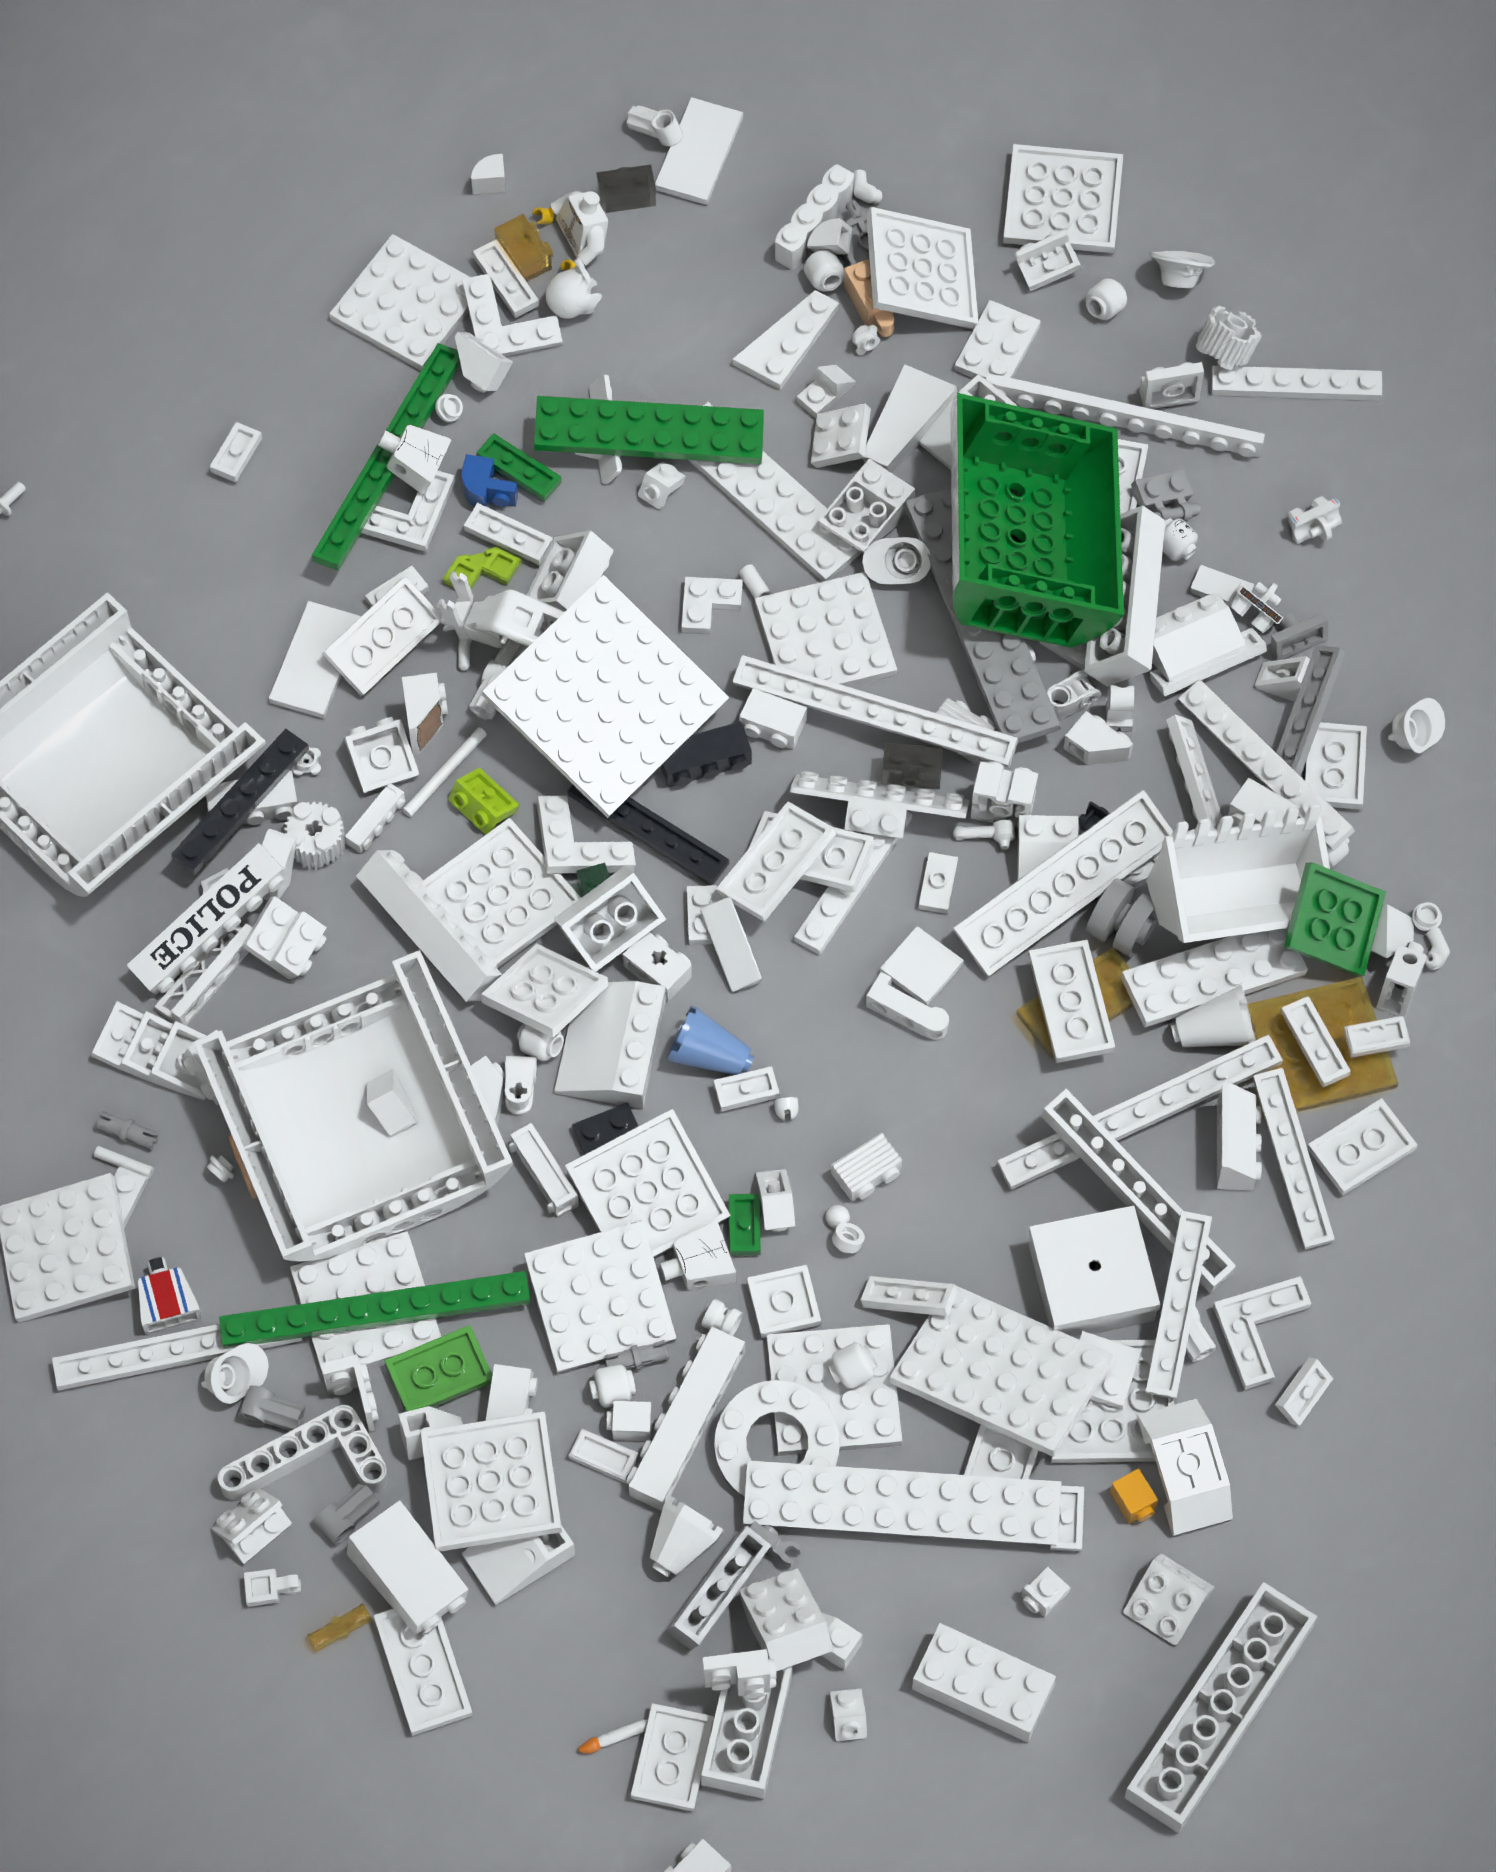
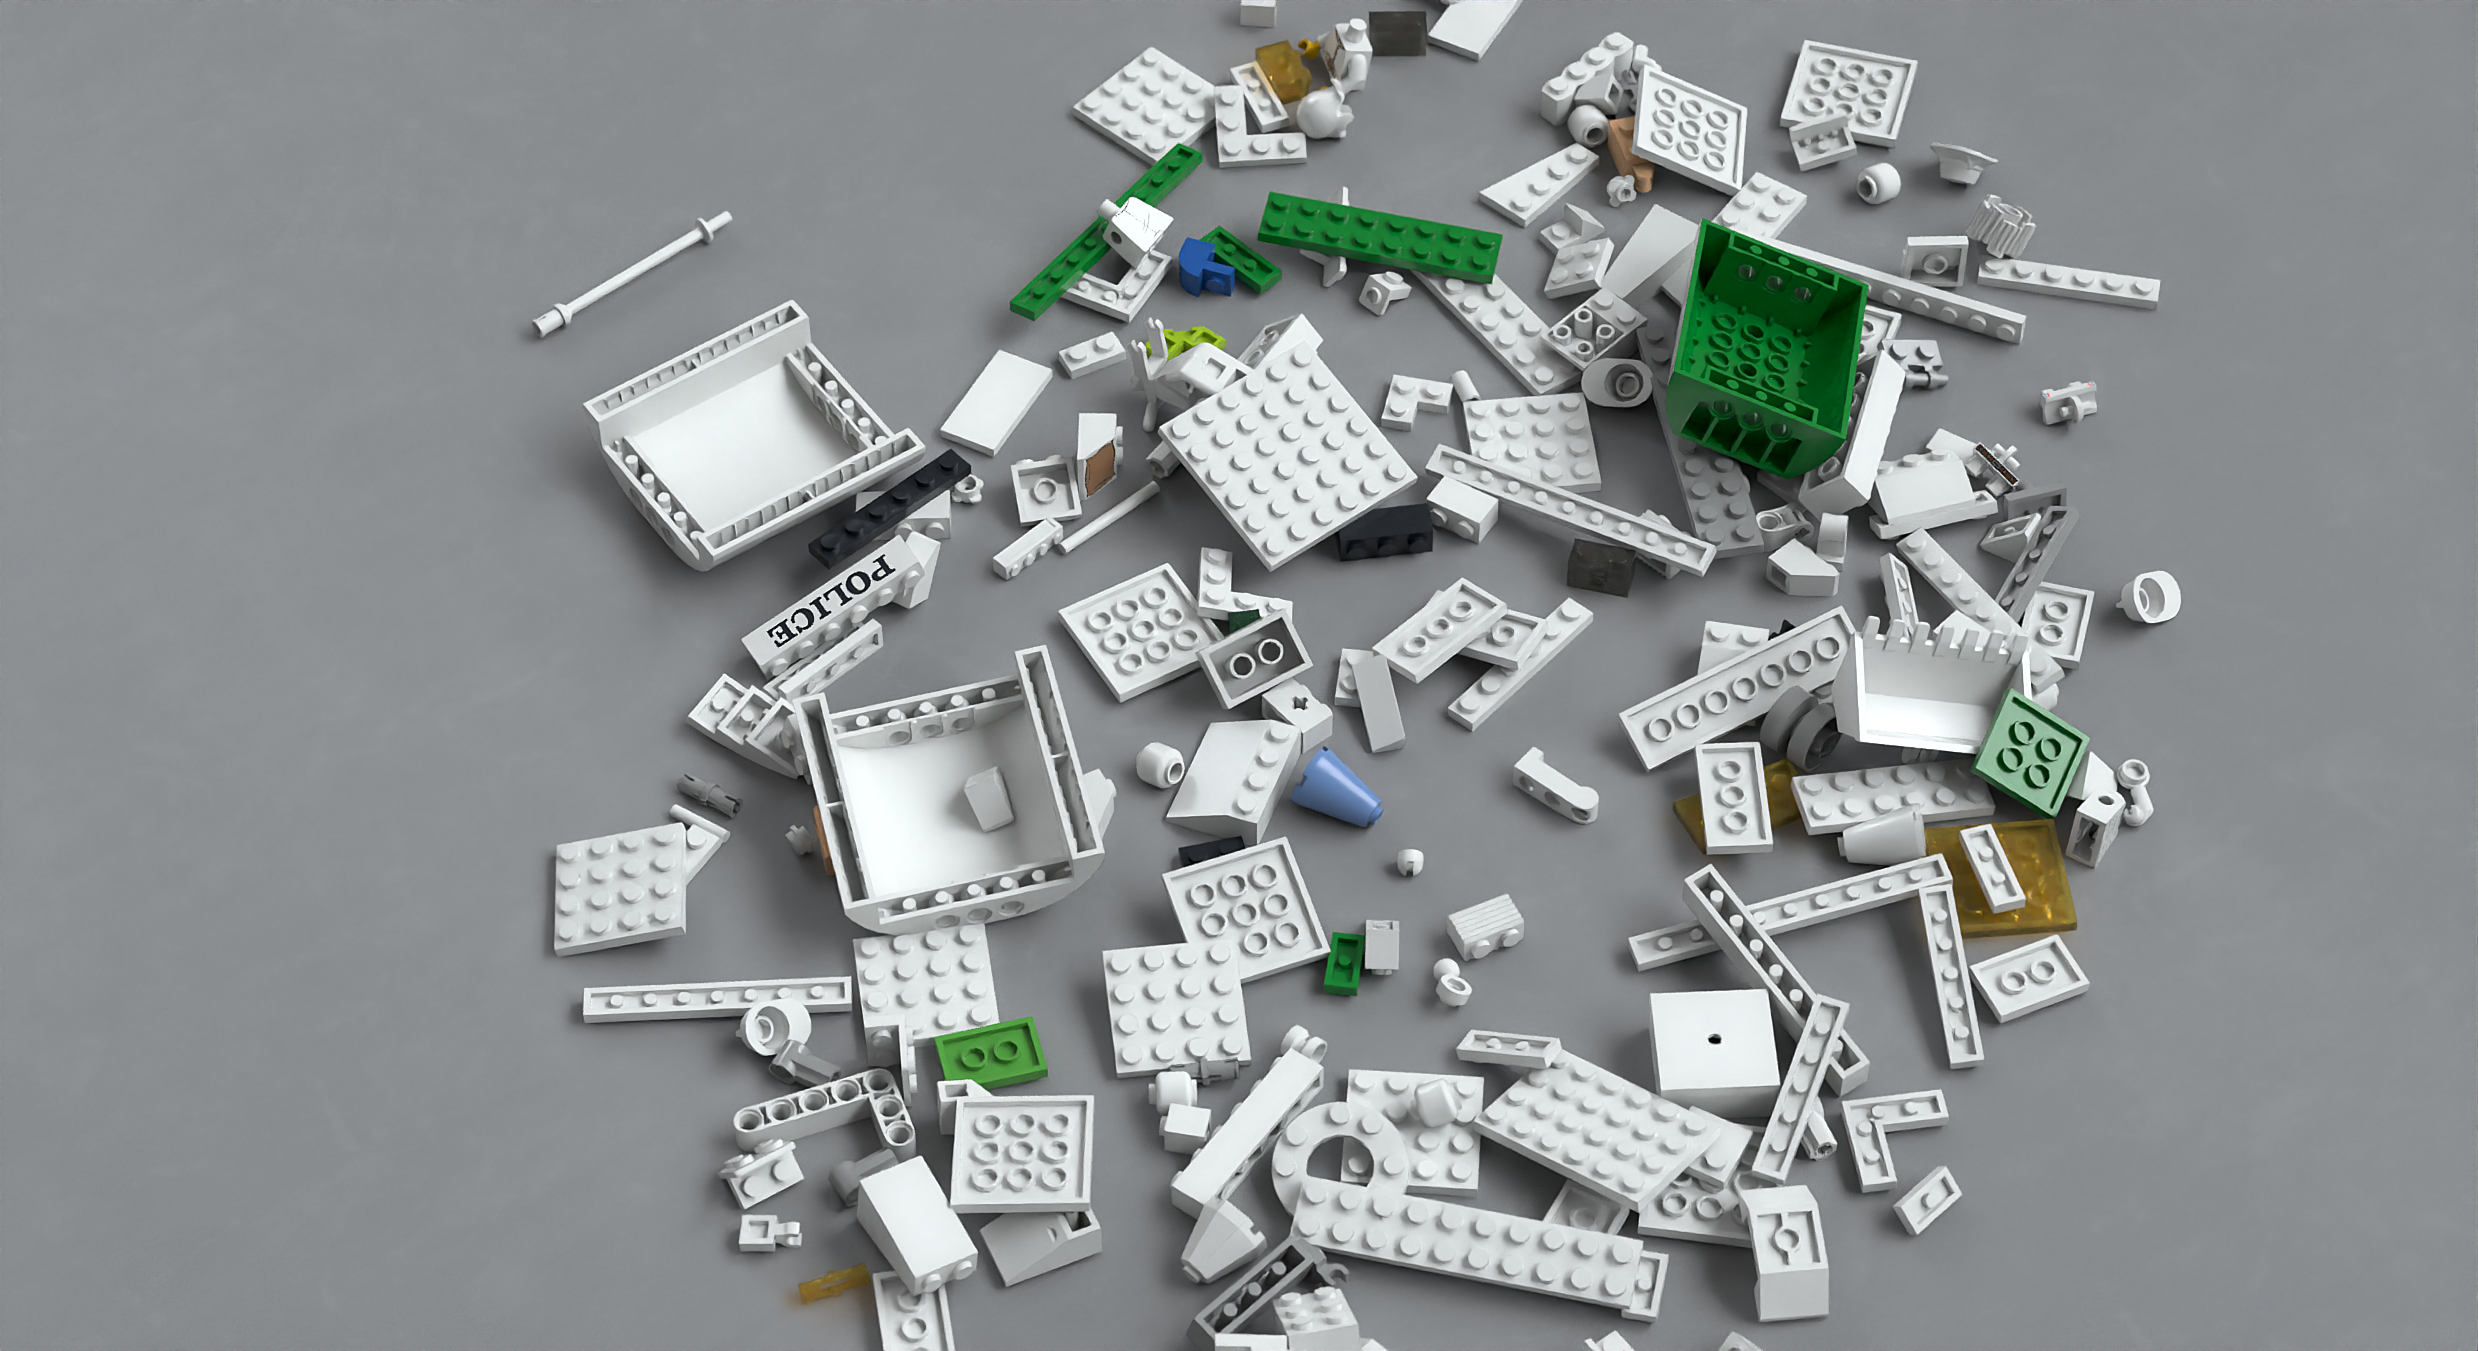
camera: 10 degrees right, 15 degrees down
(165, 1298) = (716, 951): torso -> none
(236, 452) = (952, 213): white plate -> none
(285, 938) = (911, 639): white plate -> none
(317, 832) = (963, 551): white brick -> none
(374, 1309) = (935, 986): green plate -> none
(383, 636) = (1068, 386): white plate -> none
(429, 924) = (1070, 650): white brick -> none
(448, 407) = (1178, 200): white plate -> none
(481, 363) = (1219, 164): white slope -> none
(482, 800) = (1142, 544): lime bracket -> none
(508, 534) = (1217, 316): white plate -> none
(510, 1392) = (1064, 1075): white brick -> none
(520, 1080) = (1130, 804): white piece -> none
(544, 990) = (1172, 717): white plate -> none
(544, 1170) = (1140, 885): white container -> none
(603, 1455) = (1149, 1160): white tile -> none
(662, 837) = (1320, 598): black plate -> none
(701, 1259) = (1291, 989): white torso -> none
(746, 1089) = (1370, 839): white plate -> none
(784, 1301) = (1373, 1040): white plate -> none
(879, 808) = (1558, 603): white bracket -> none
(922, 966) = (1580, 751): white tile -> none
(938, 883) = (1610, 680): white plate -> none
(1001, 831) = (1686, 640): white piece -> none
(1003, 793) = (1691, 600): white brick -> none
(1134, 1497) = (1722, 1275): light orange brick -> none
(1179, 540) = (1918, 401): white head -> none
(1237, 1139) = (1893, 950): white slope -> none
(1376, 1036) = (2060, 872): white plate -> none

